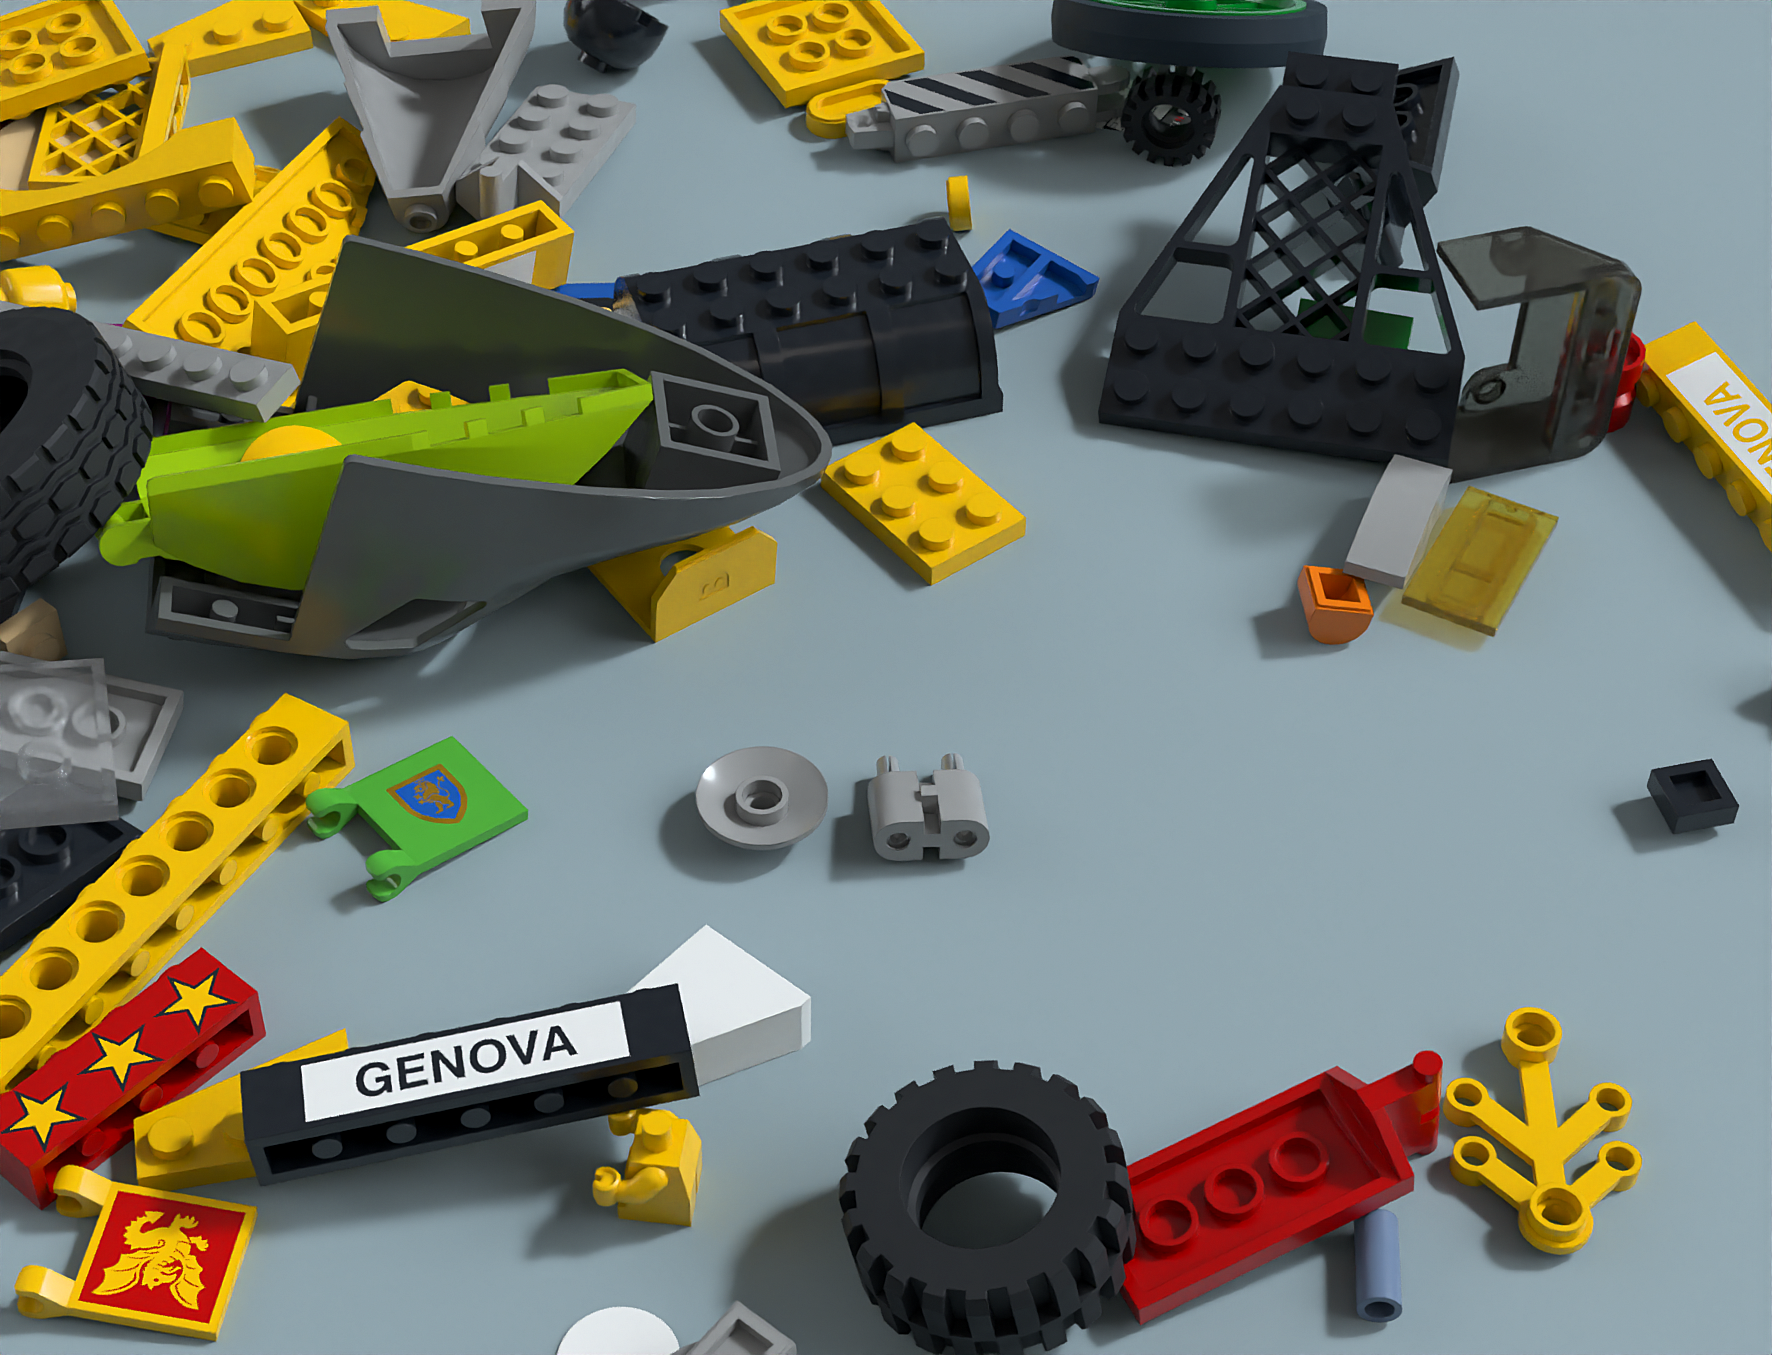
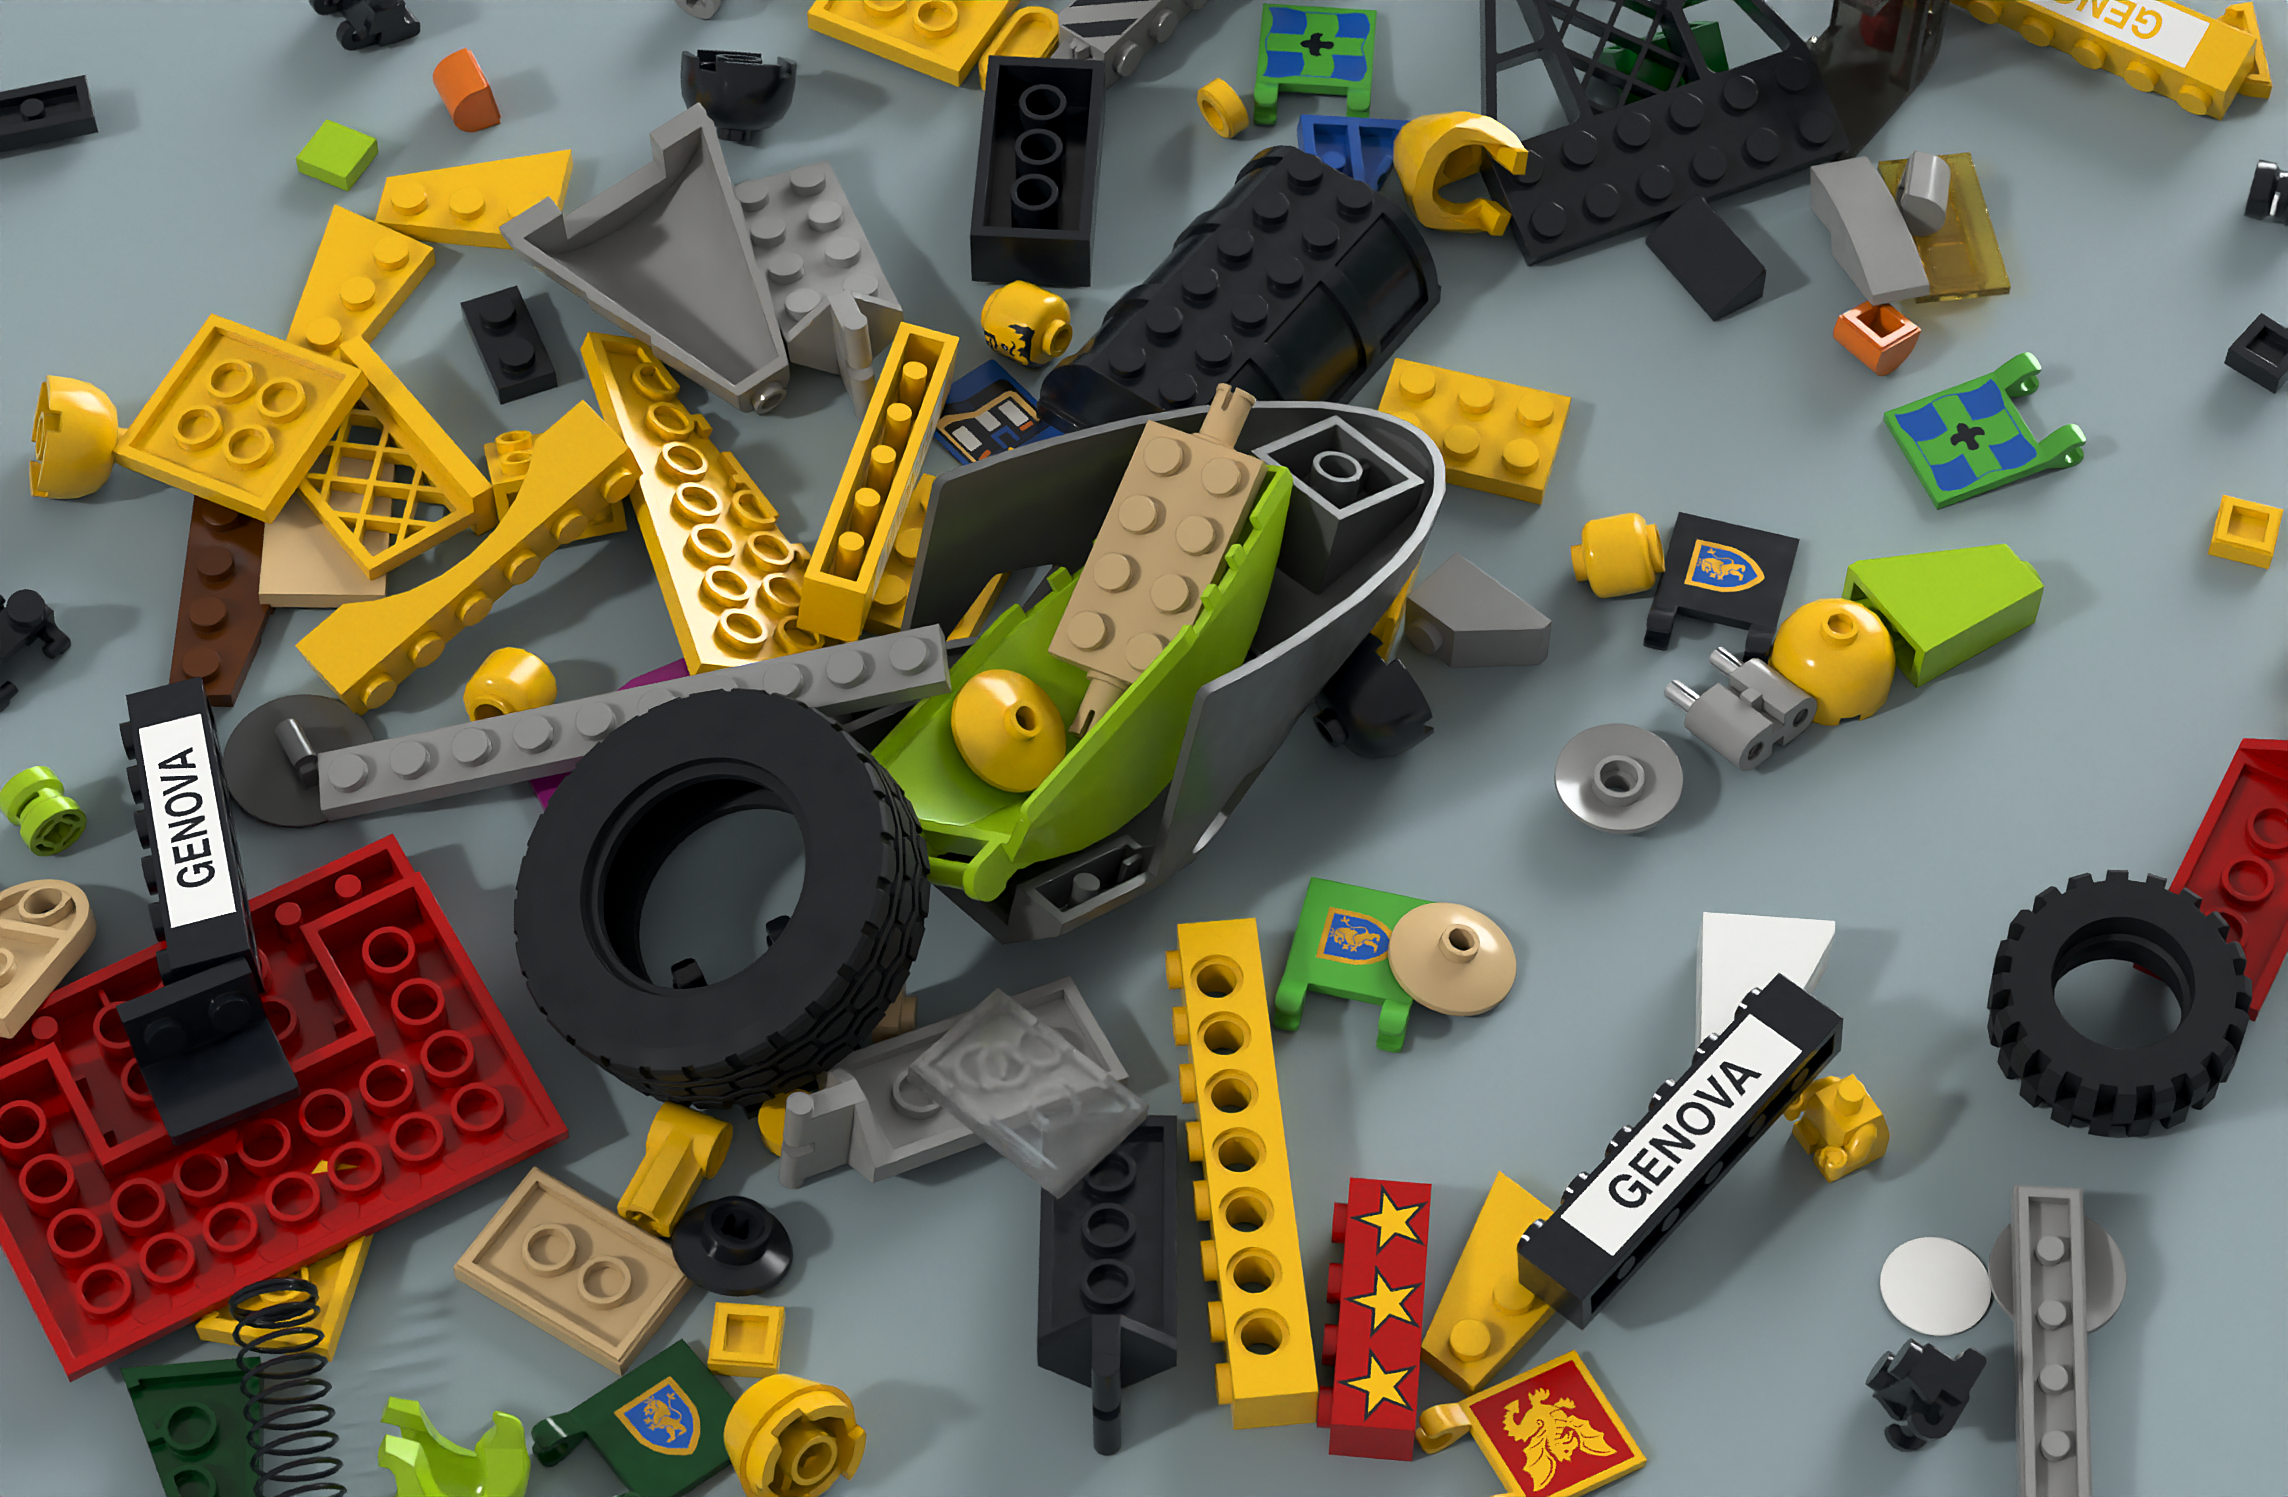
camera: 35 degrees left, 10 degrees up
(295, 111) = (509, 345): none -> black plate
(486, 874) = (1449, 978): none -> tan dish
(549, 370) = (1158, 551): none -> tan plate
(607, 624) = (1372, 705): none -> black cylinder
(651, 248) = (1026, 324): none -> yellow head
(767, 170) = (1038, 171): none -> black brick
(769, 622) = (1474, 620): none -> light grey slope
(940, 641) = (1618, 555): none -> yellow head
(1019, 709) = (1724, 578): none -> black flag
(1045, 816) = (1837, 657): none -> yellow cylinder
(1074, 205) = (1314, 53): none -> bright green flag
(1078, 304) = (1444, 150): none -> yellow piece
(1187, 827) = (1946, 603): none -> lime slope
(1246, 484) = (1708, 259): none -> black slope
(1361, 725) = (1976, 438): none -> bright green flag
(1470, 515) = (1923, 193): none -> light grey brick
(1536, 925) = (2245, 532): none -> yellow tile

